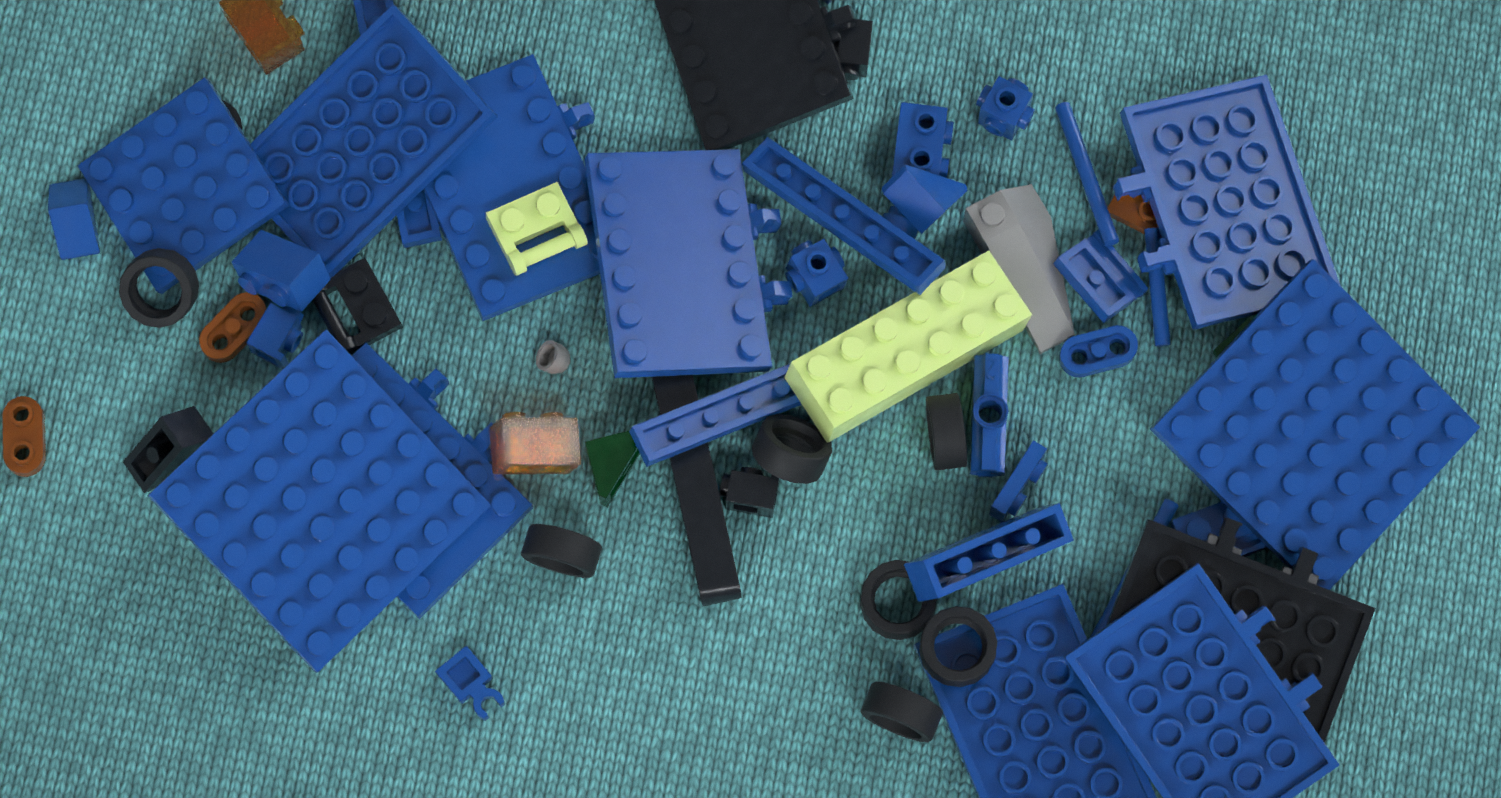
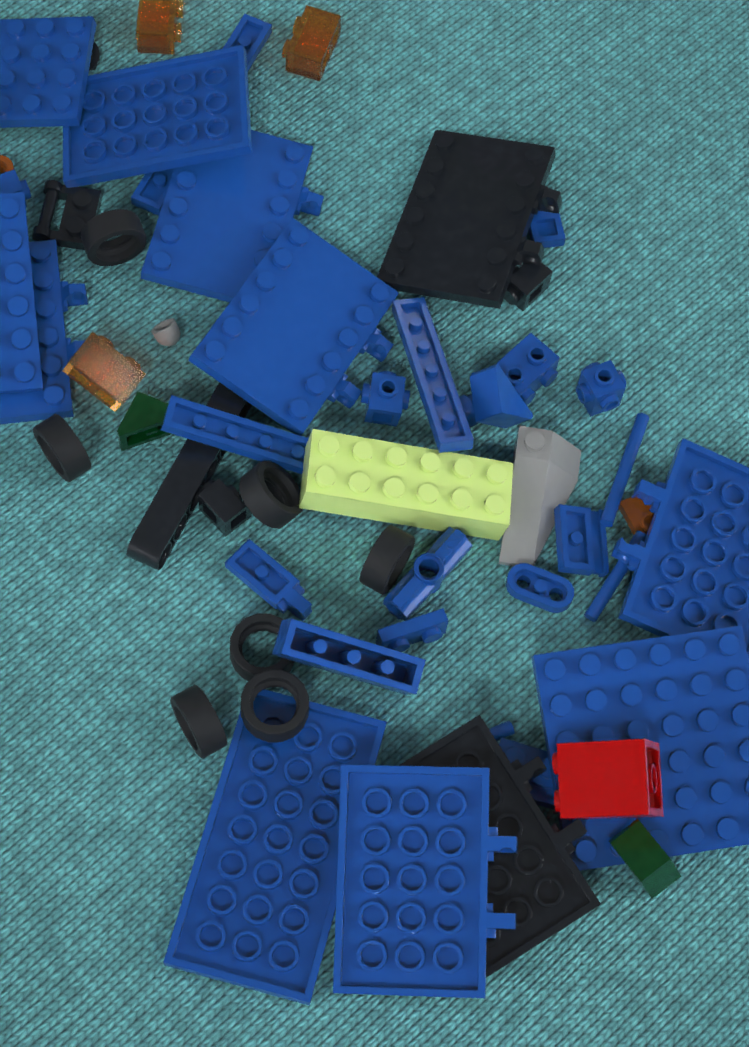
camera: 30 degrees right, 10 degrees down
(280, 271) = (37, 156): blue brick -> none
(427, 301) = (109, 225): none -> black tyre
(530, 218) = (225, 236): yellowish green plate -> none
(850, 530) = (269, 580): none -> blue hinge
(1304, 494) = (608, 779): none -> red slope
(1378, 536) = (645, 858): none -> dark green slope

